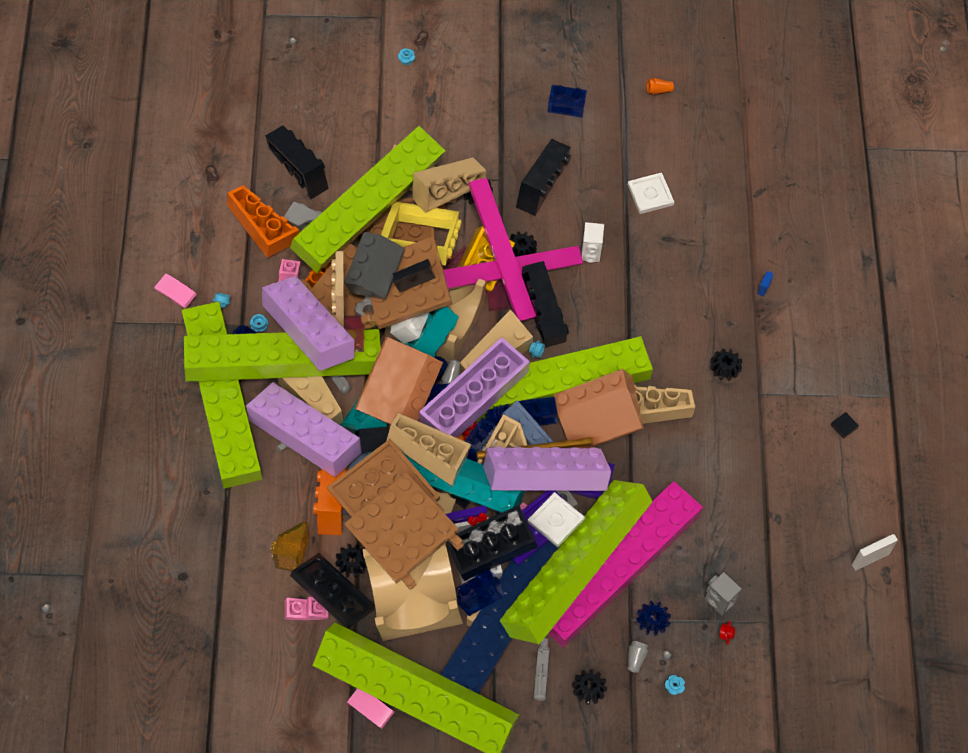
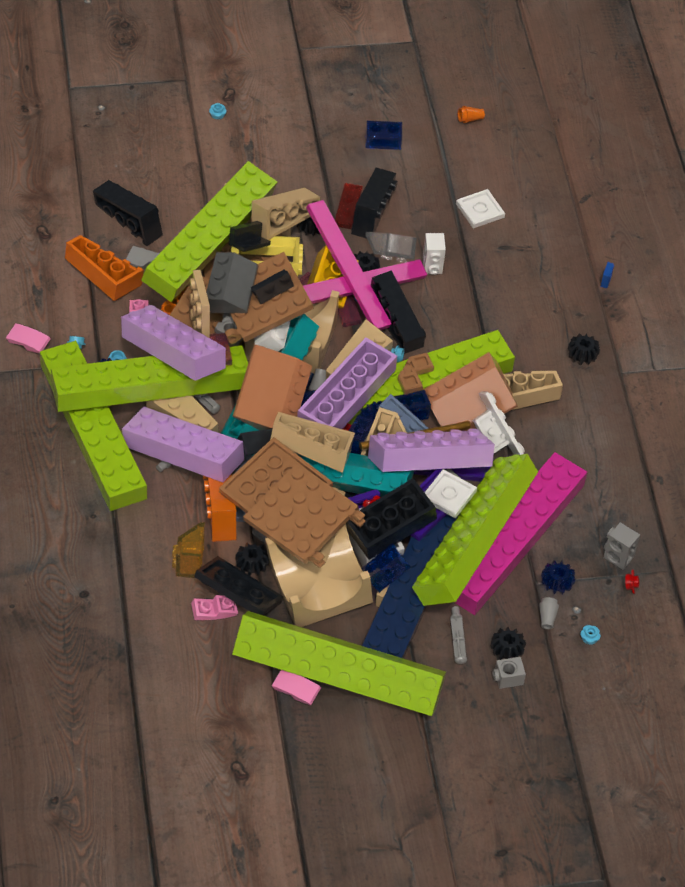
camera: 10 degrees left, 10 degrees down
(405, 209) = (247, 236): none -> black panel
(517, 173) = (346, 208): none -> clear red tile
(540, 381) = (409, 376): none -> medium nougat tile
(552, 229) = (392, 245): none -> clear slope
(591, 712) = (510, 665): none -> light grey brick
(615, 448) = (493, 426): none -> white bracket

